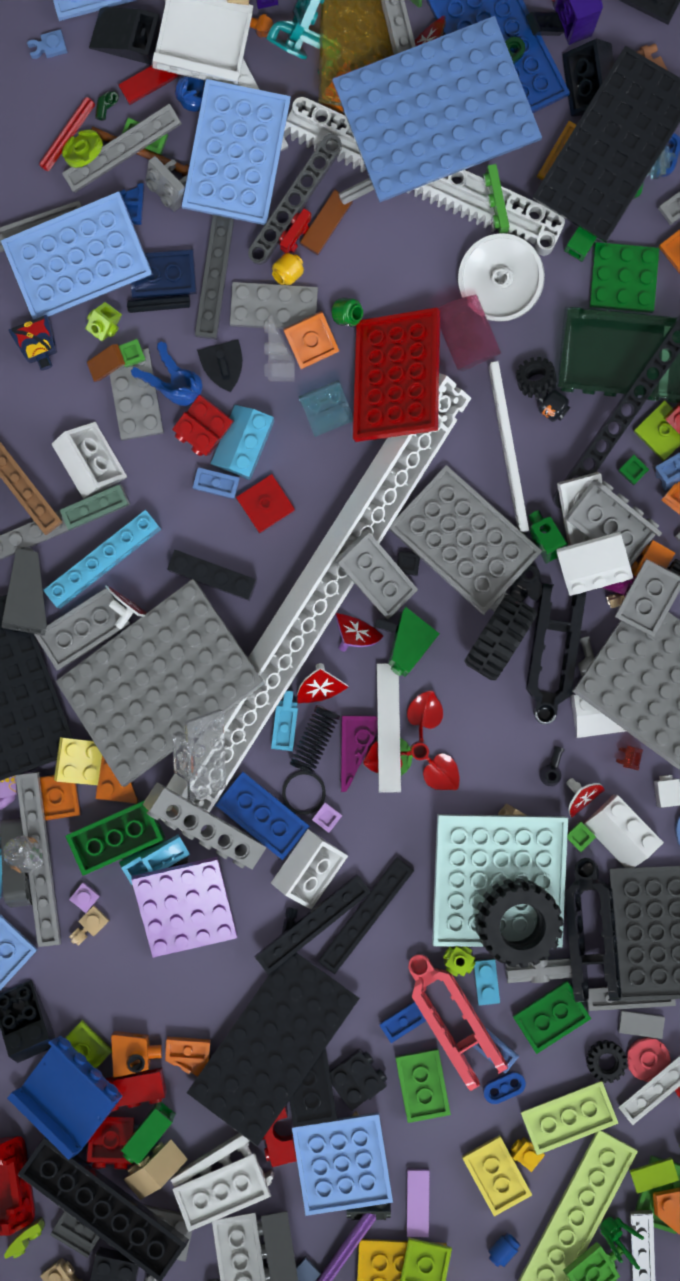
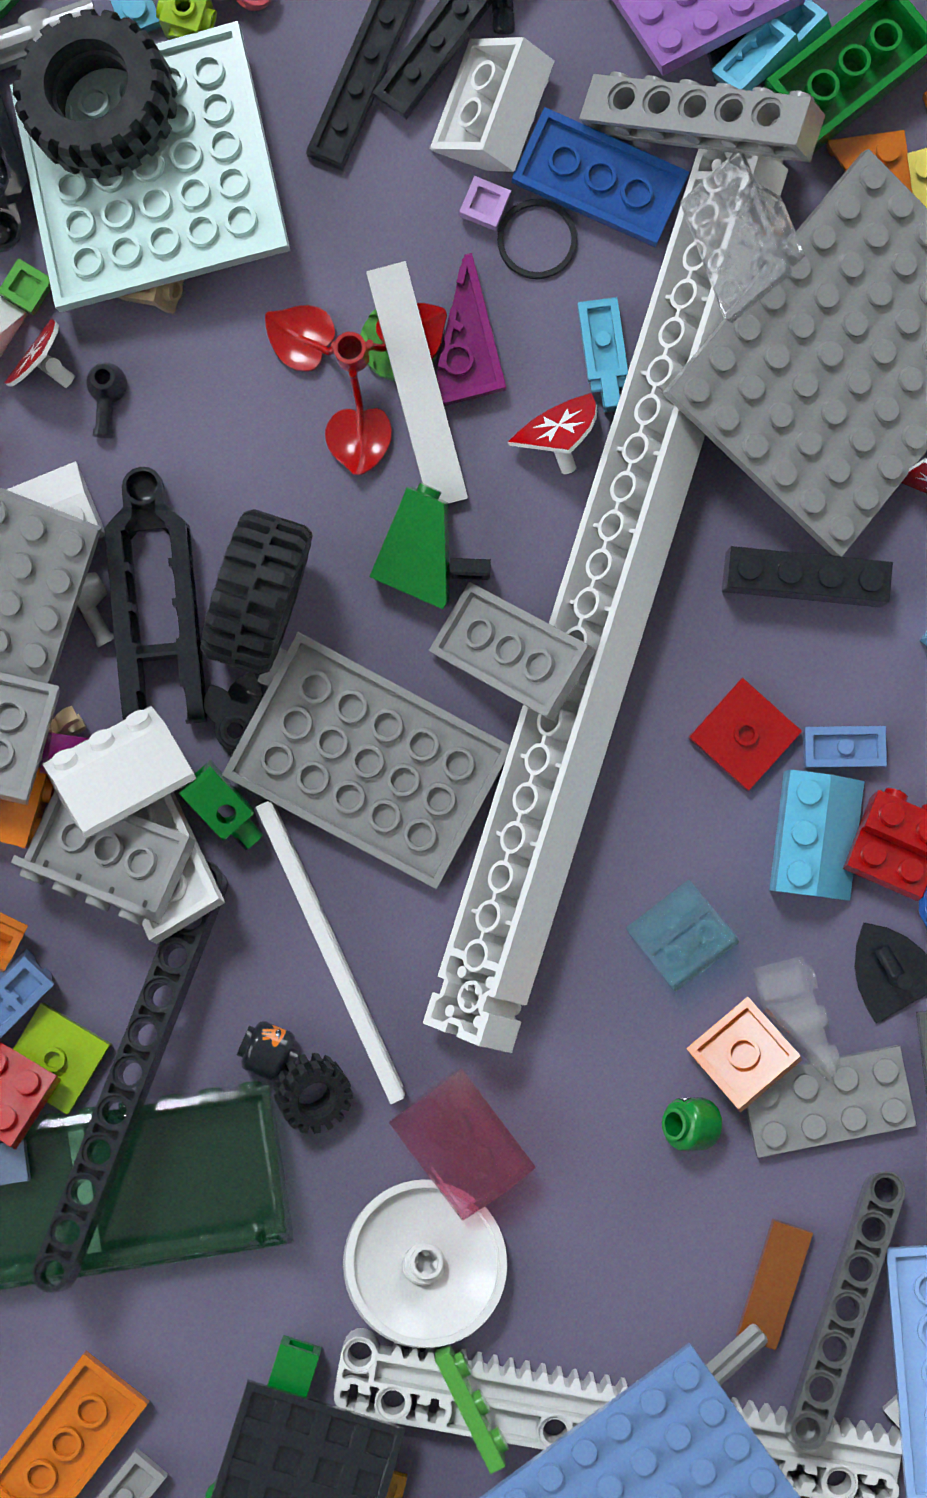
camera: 170 degrees right, 0 degrees up
(287, 269) = (822, 1176): yellow head -> none
(298, 227) = (823, 1262): red plate -> none
(306, 767) = (539, 379): black piece -> none
(356, 632) = (519, 542): red shield -> none
(397, 375) = (570, 1025): red plate -> none
(408, 563) = (458, 693): black tile -> none
(624, 277) = (198, 1326): green plate -> none
(633, 470) = (93, 970): green plate -> none

